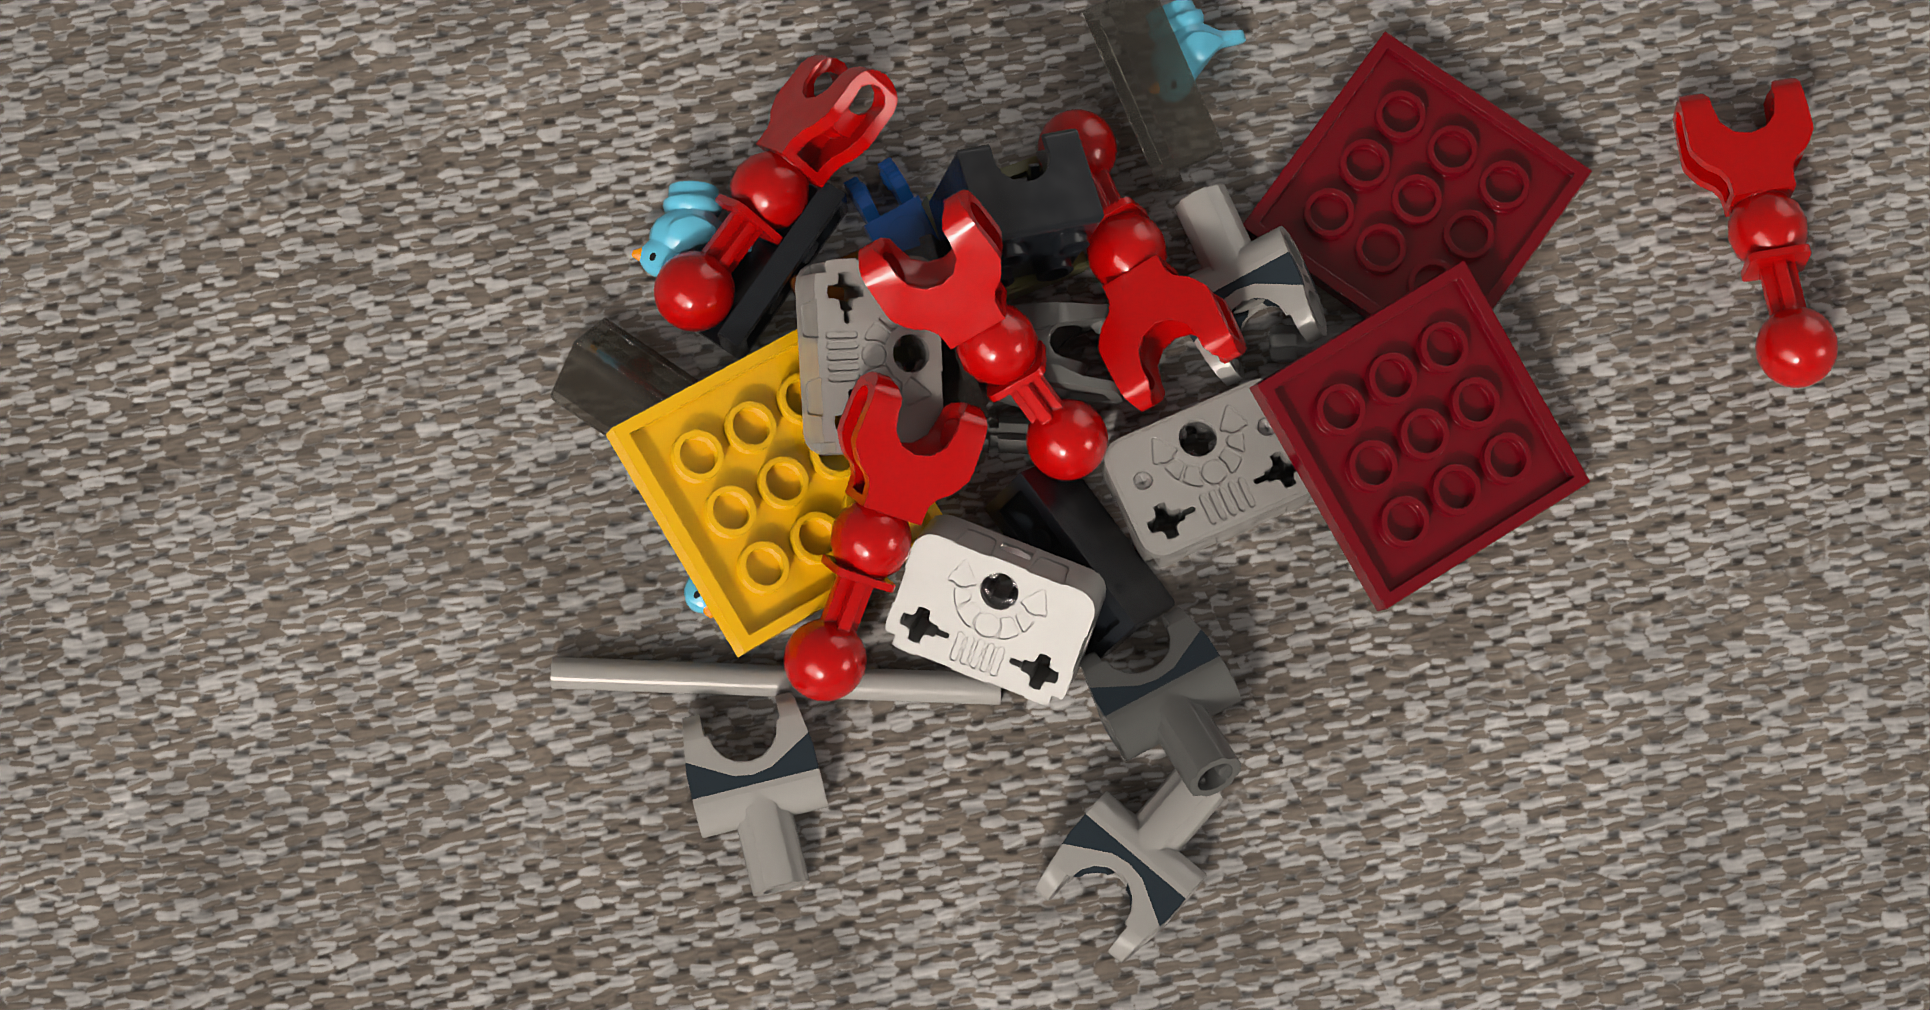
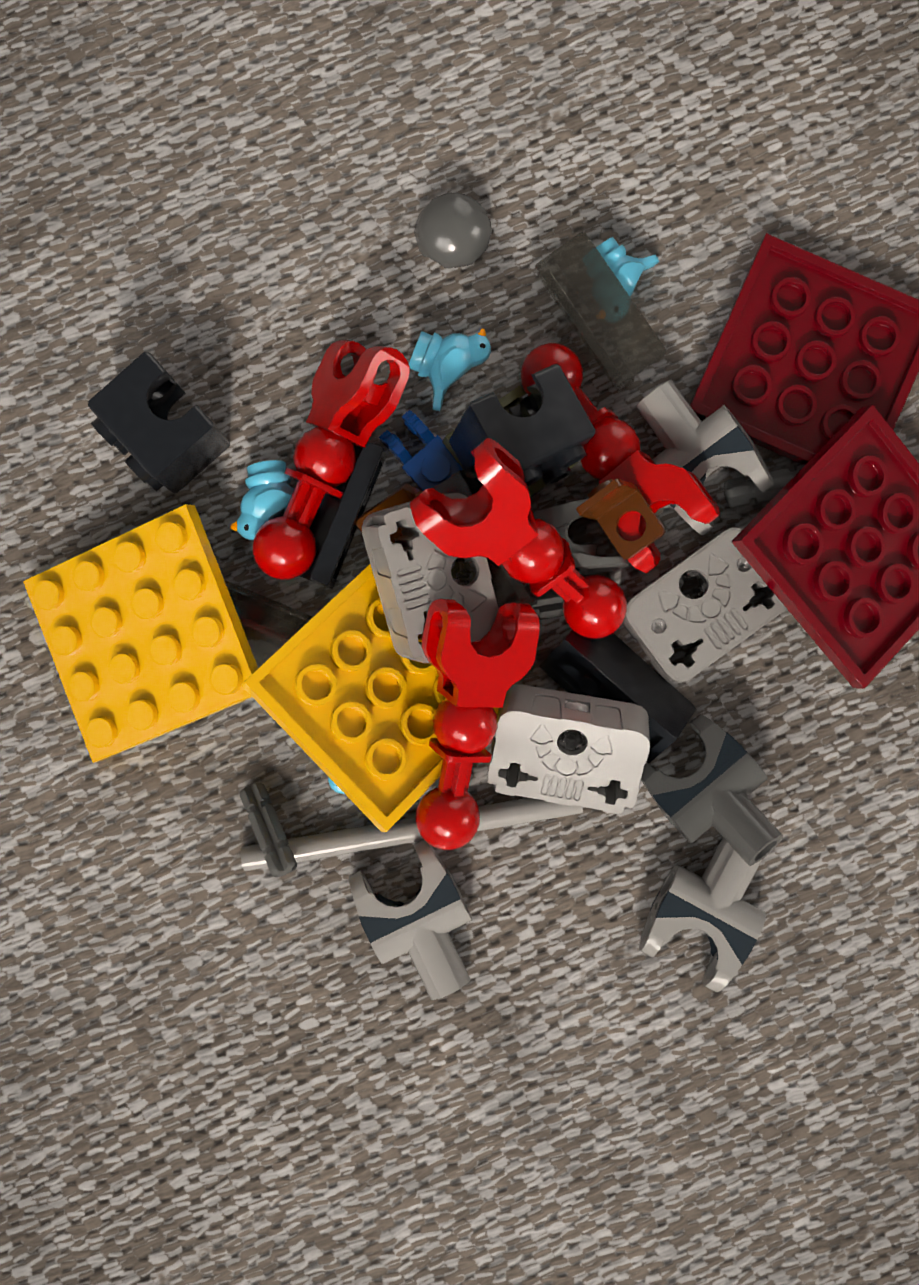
camera: 15 degrees left, 10 degrees up
(493, 362) = (143, 633): none -> yellow plate
(570, 140) = (135, 420): none -> black piece
(594, 637) = (268, 830): none -> dark grey axle
(950, 105) = (448, 359): none -> medium azure animal
(1109, 309) = (610, 502): none -> reddish brown bracket

